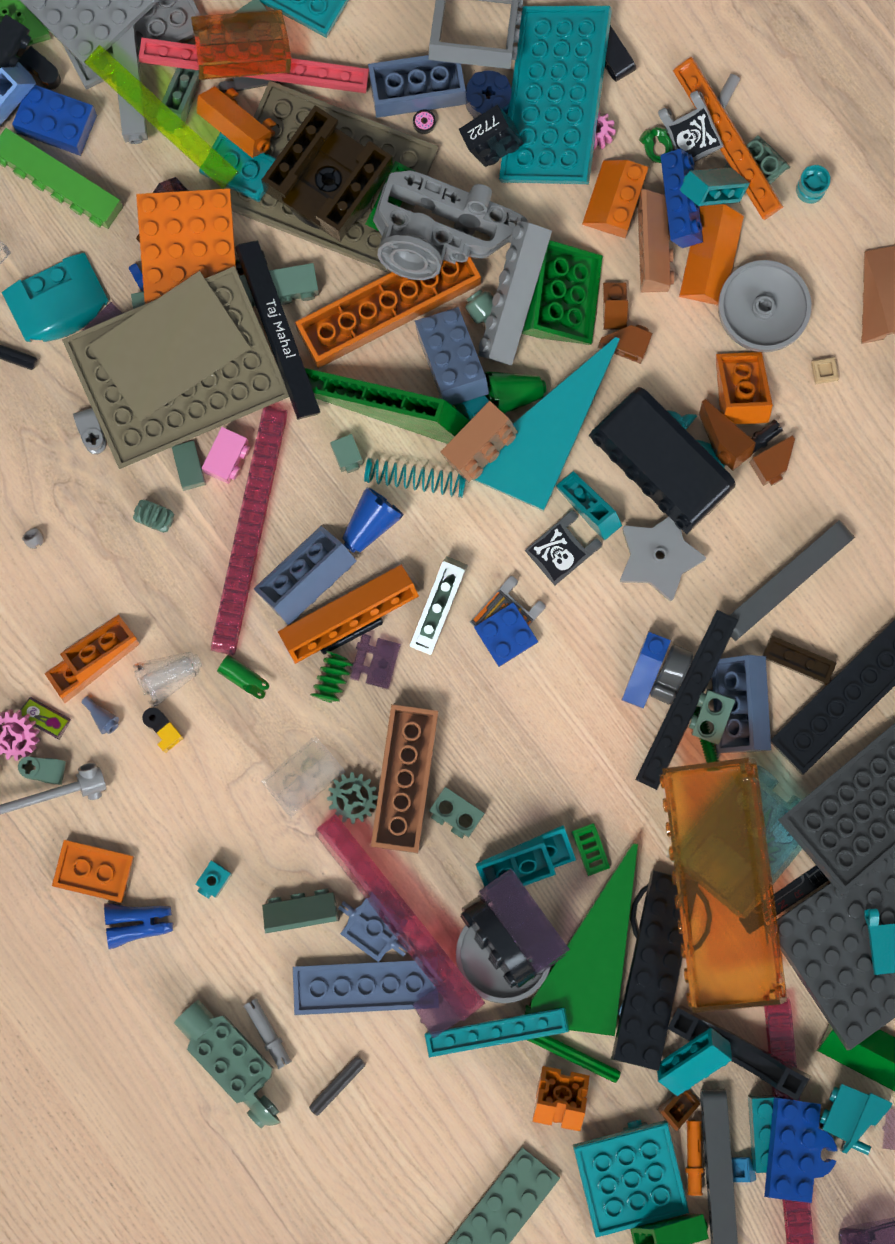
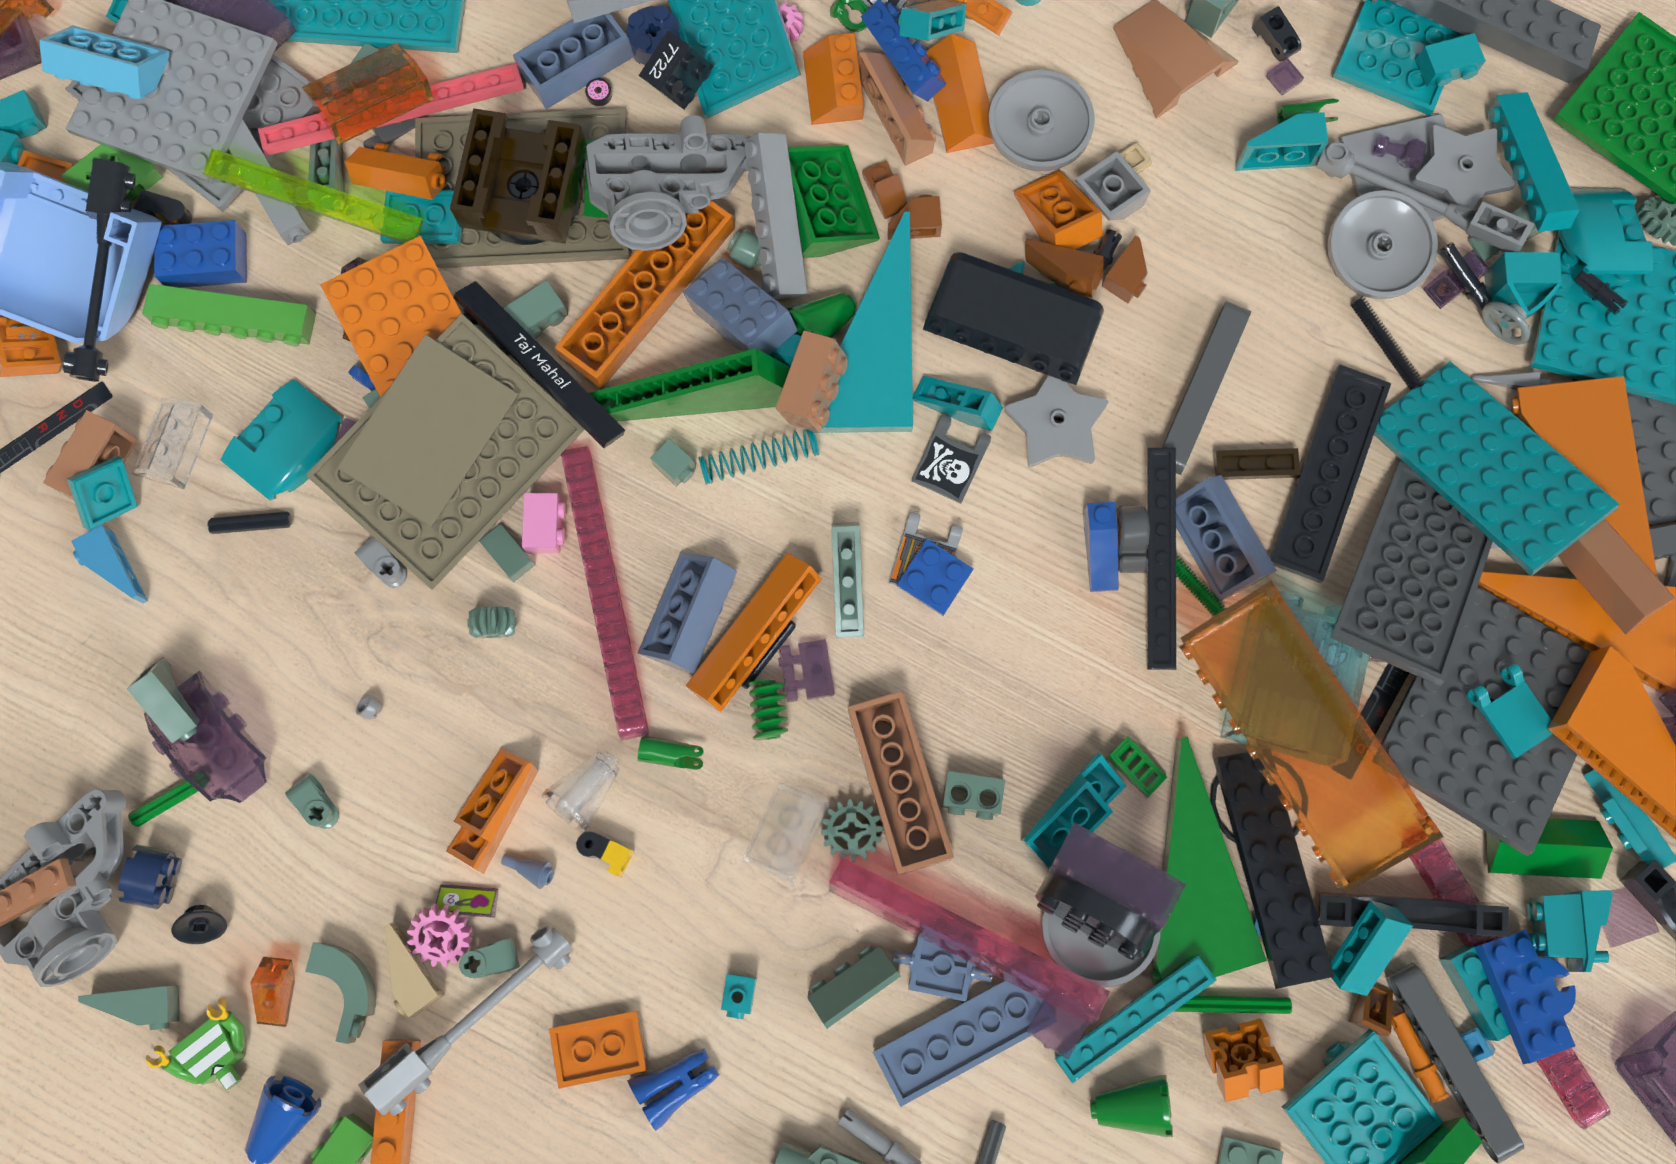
camera: 20 degrees left, 5 degrees down
(370, 520) = (731, 522): blue cone -> none
(467, 1096) = (1136, 1107): none -> green cone
(718, 718) = (1207, 561): sand green brick -> none
(793, 389) = (1114, 187): none -> light grey slope

